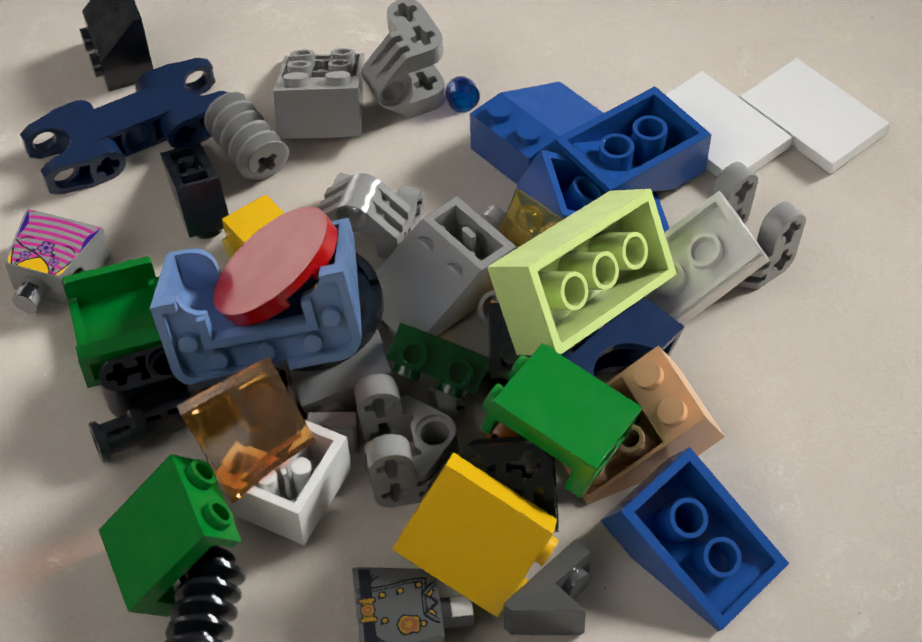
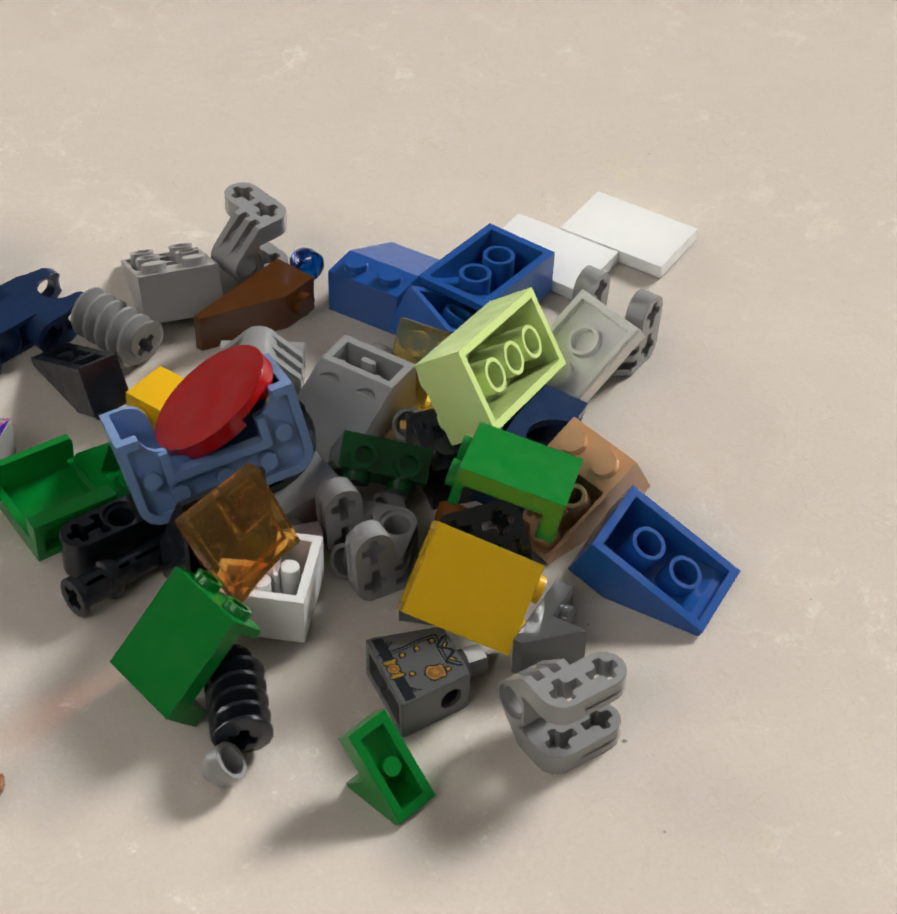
camera: 20 degrees left, 10 degrees down
(393, 137) = (269, 298): none -> reddish brown slope

